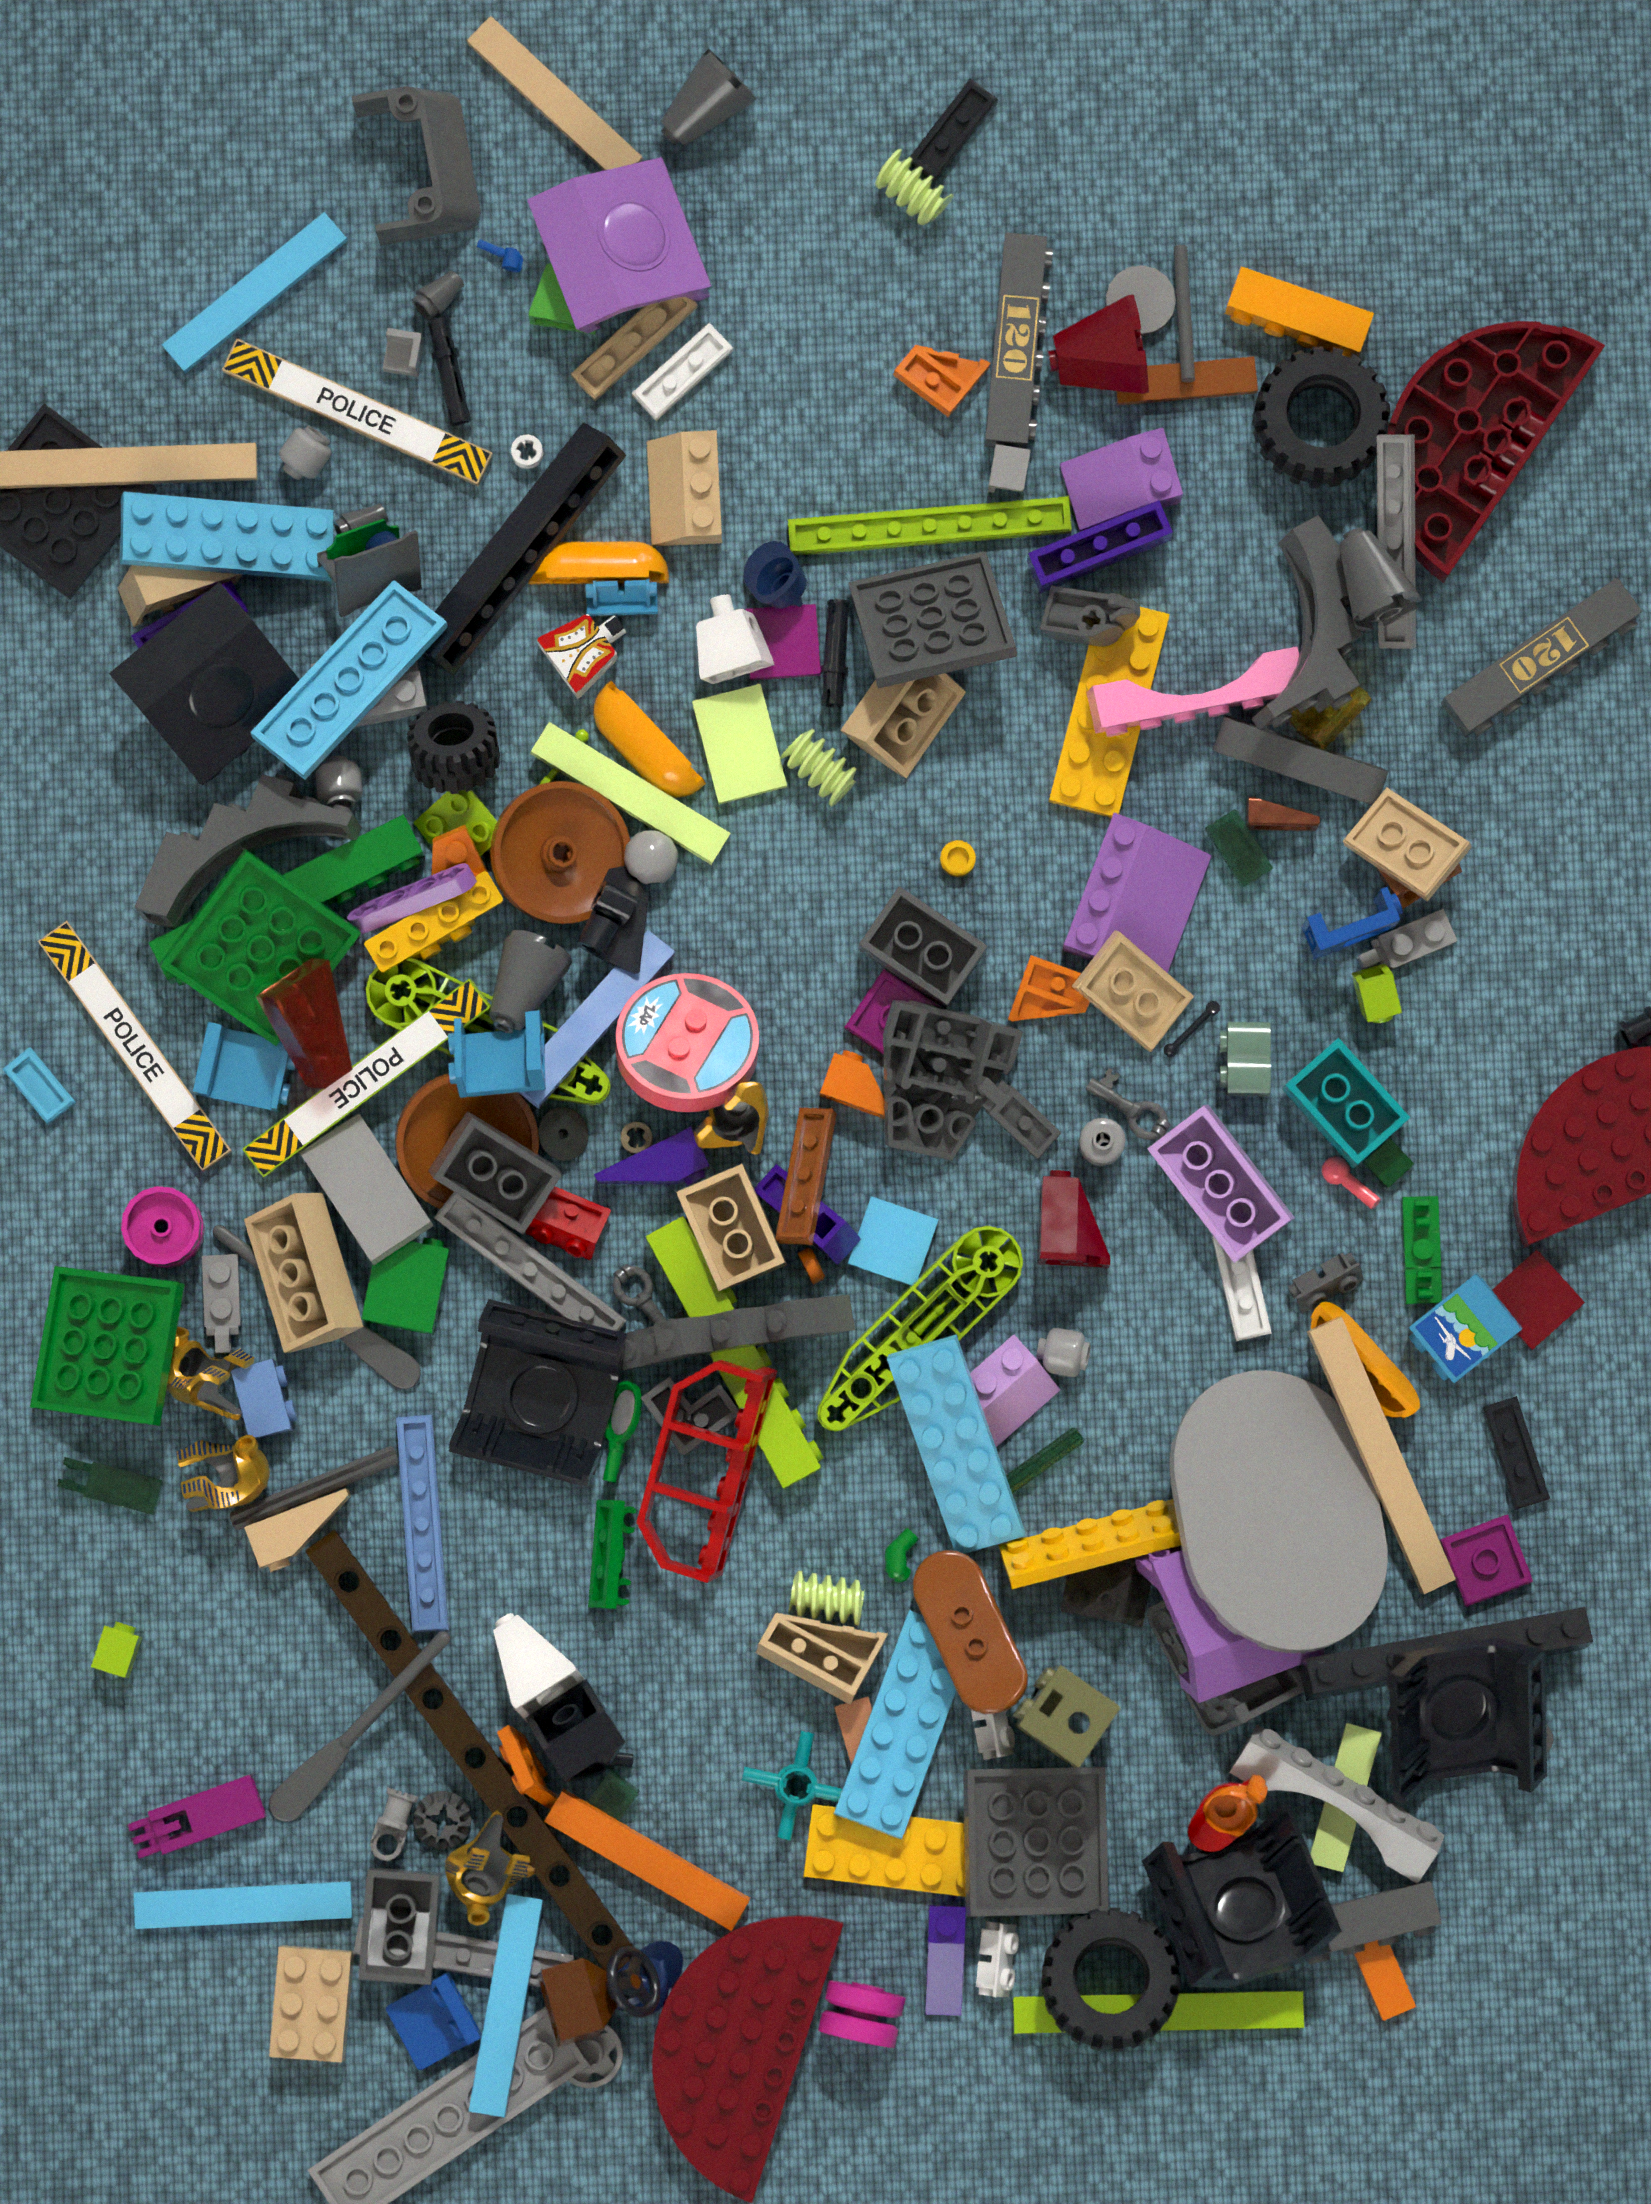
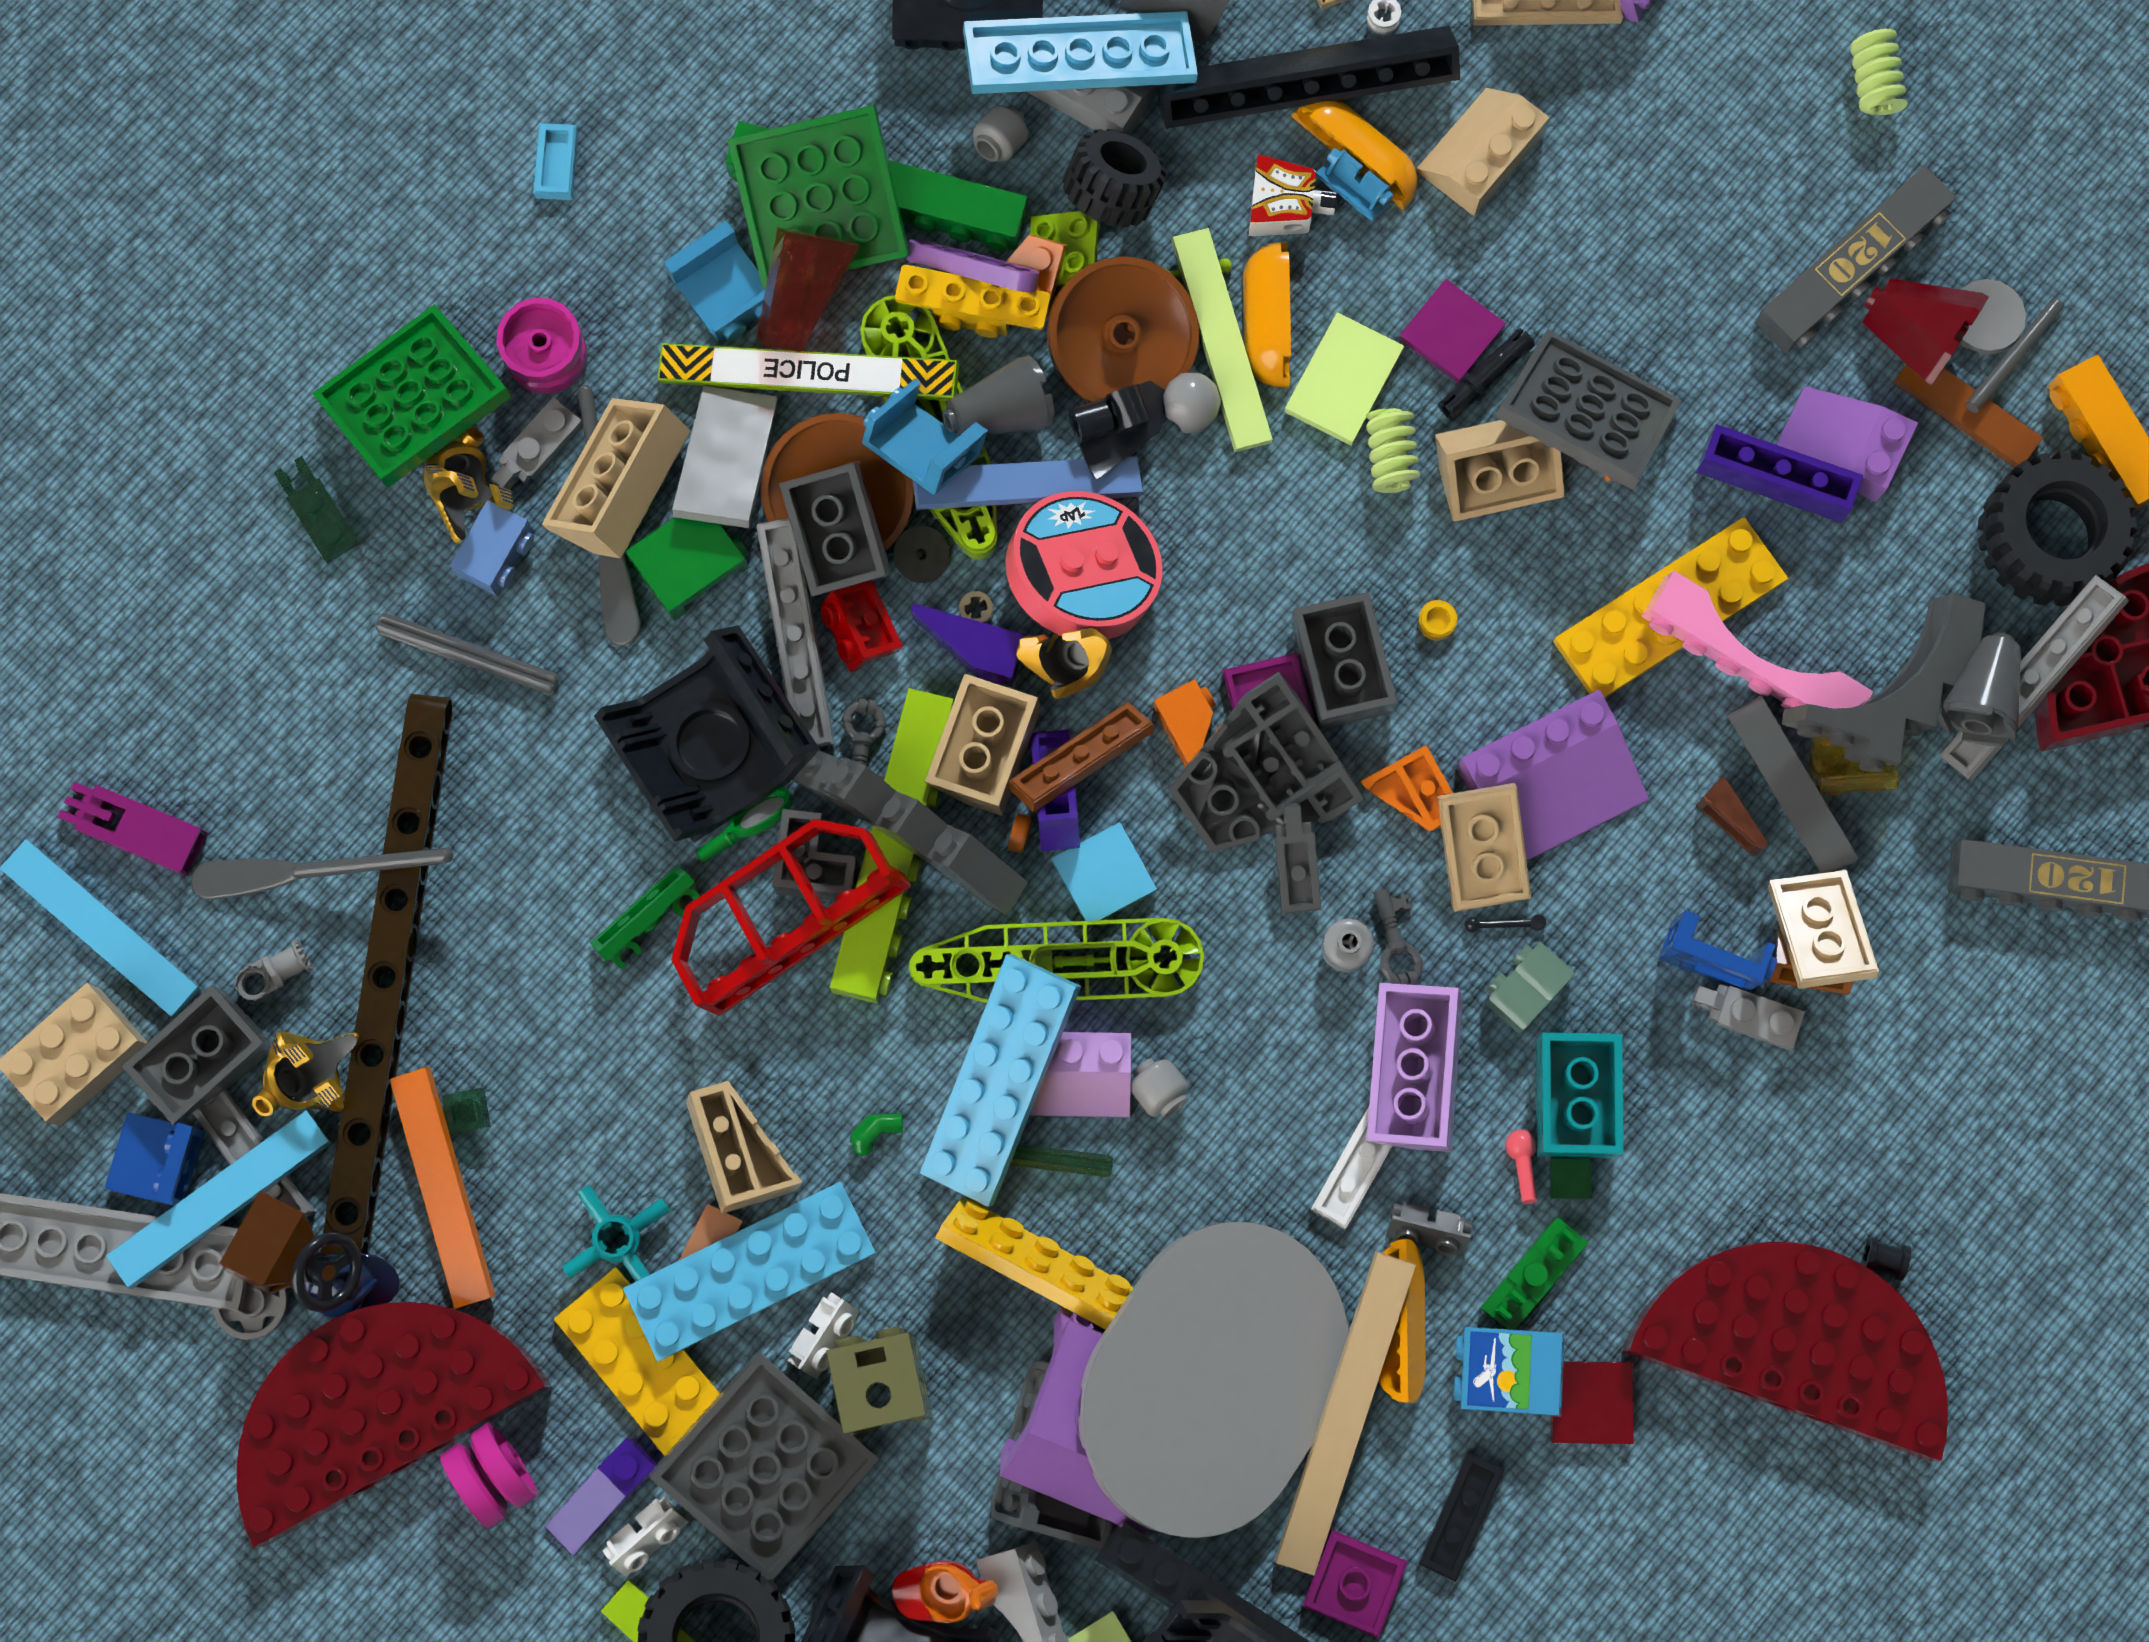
camera: 45 degrees right, 5 degrees down
(117, 1650) = (195, 639): lime brick -> none
(135, 1046) = (656, 196): tile -> none
(190, 863) = (926, 110): dark grey arch -> none
(241, 1470) = (427, 578): pearl gold piece -> none
(287, 1533) = (418, 670): tan slope -> none
(422, 1523) = (523, 758): medium blue tile -> none
(456, 1810) = (333, 1007): dark grey gear -> none
(526, 1766) = (417, 1021): orange wing -> none
(531, 1666) = (496, 950): white slope -> none
(579, 1734) = (480, 1035): black piece -> none
(682, 371) = (1563, 60): white tile -> none
(730, 643) = (1408, 292): white torso -> none
(775, 575) = (1493, 273): dark blue piece -> none
(827, 1597) = (783, 1110): yellowish green piece -> none
(929, 526) = (1653, 343): lime tile -> none
(940, 376) = (1768, 236): orange wing -> none
(953, 130) = (1953, 60): black tile -> none
(969, 1632) = (869, 1243): dark orange piece -> none
(1009, 468) = (1760, 350): light grey panel -> none
(1068, 1225) = (1256, 987): dark red slope -> none
(1088, 616) = (1720, 518): dark grey piece -> none
(1108, 1593) = (1014, 1318): clear smoke bracket -> none
(1238, 848) = (1676, 813): clear green plate -> none
(1376, 993) = (1686, 1030): lime brick -> none

